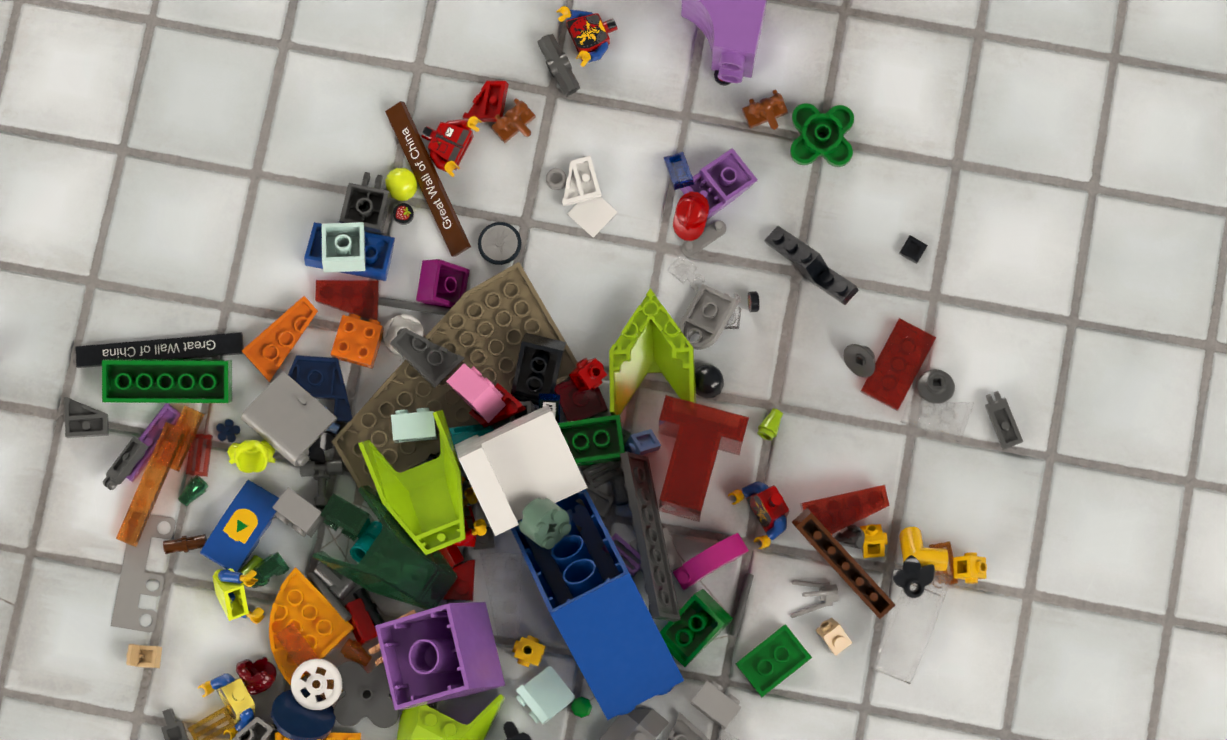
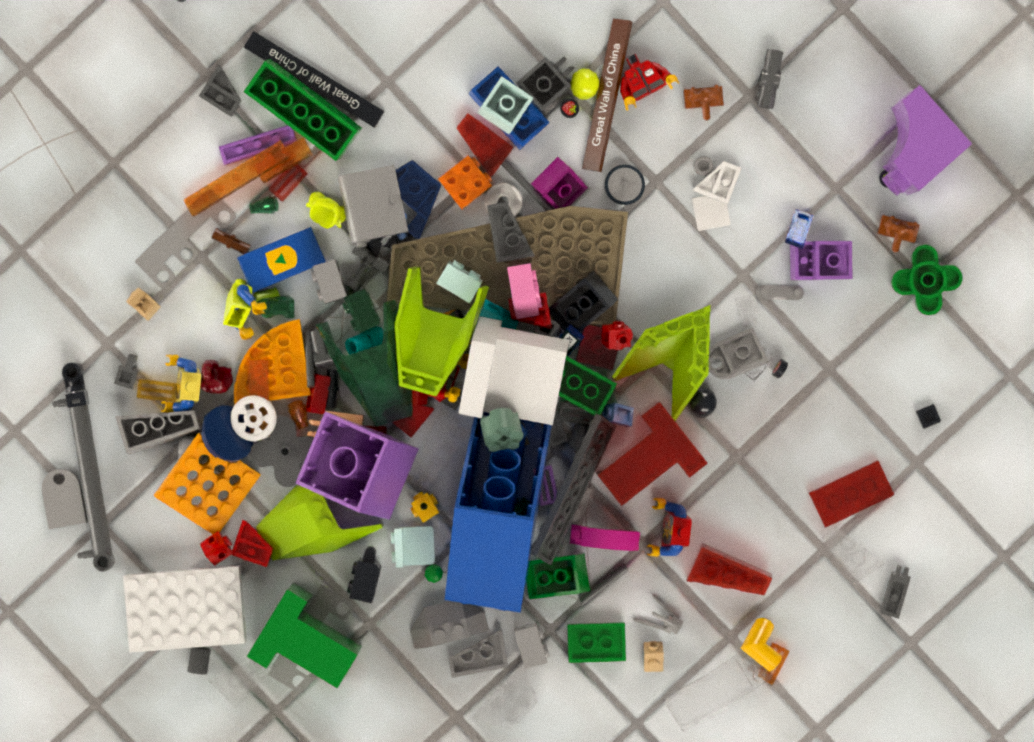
camera: 30 degrees right, 10 degrees up
(124, 463) = (228, 149): dark grey hinge -> none
(227, 431) = (321, 179): dark blue plant -> none
(276, 341) = (407, 137): orange wing -> none
(489, 102) = (695, 70): red wing -> none
(587, 33) = (809, 71): torso -> none
(691, 216) = (782, 270): red piece -> none
(769, 427) = (723, 470): lime cone -> none
(811, 265) = (843, 374): black bracket -> none
(843, 563) = (698, 613): reddish brown brick -> none
(852, 537) = (720, 596): dark grey tile -> none
(859, 360) = (825, 471): dark grey piece -> none
(874, 541) = (735, 607): yellow brick -> none
(913, 573) = (743, 658): black plate -> none
(933, 393) = (858, 532): dark grey piece -> none
(970, 567) = (789, 681): yellow brick -> none

